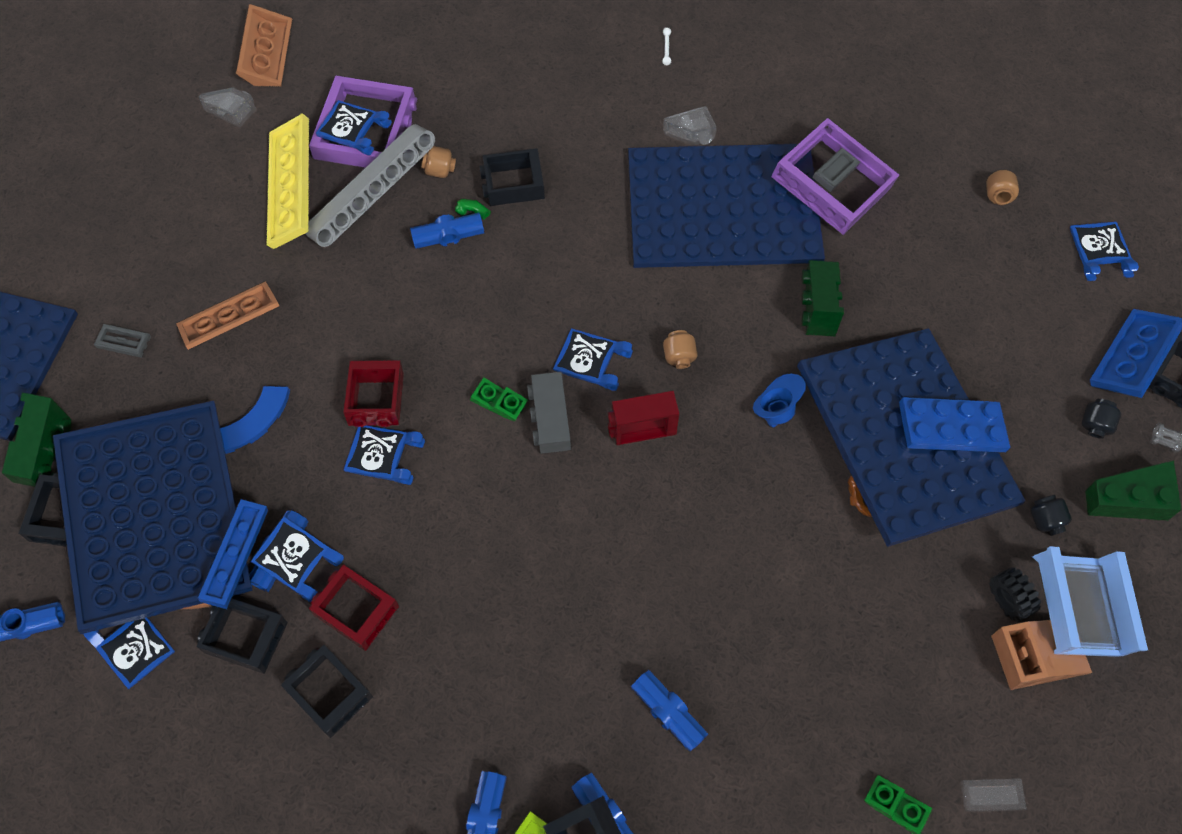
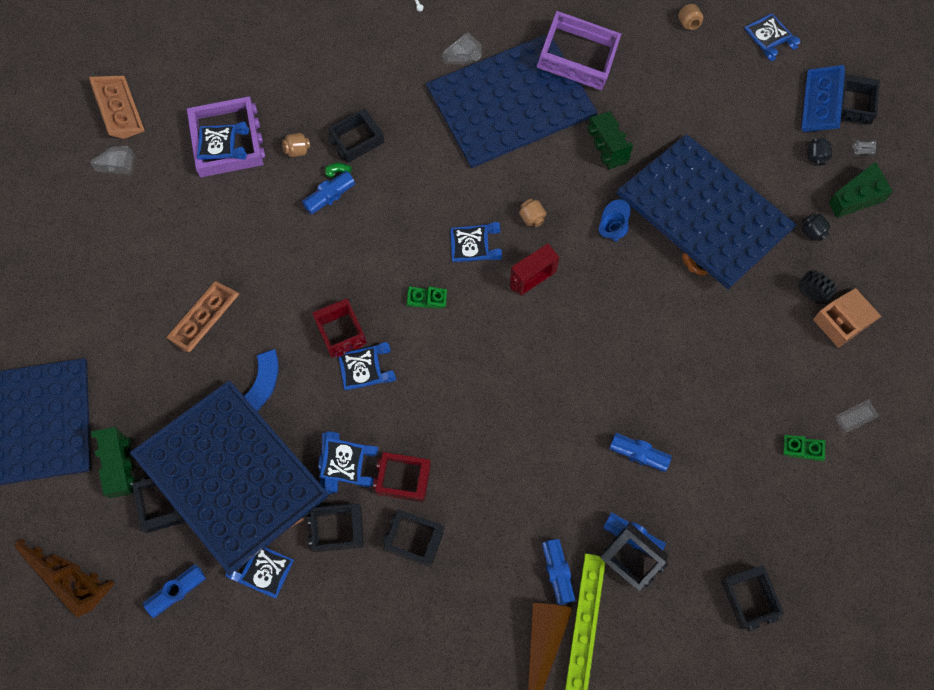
camera: 25 degrees left, 5 degrees up
(138, 352) = (149, 363): dark grey tile -> none
(233, 554) = (306, 477): blue plate -> none
(288, 181) = (194, 201): light yellow plate -> none
(412, 142) = (257, 181): light grey beam -> none
(549, 413) = (467, 292): dark grey brick -> none
(836, 169) = (580, 46): dark grey tile -> none
(954, 425) = (733, 193): blue plate -> none
(1091, 604) = (865, 273): light blue piece -> none

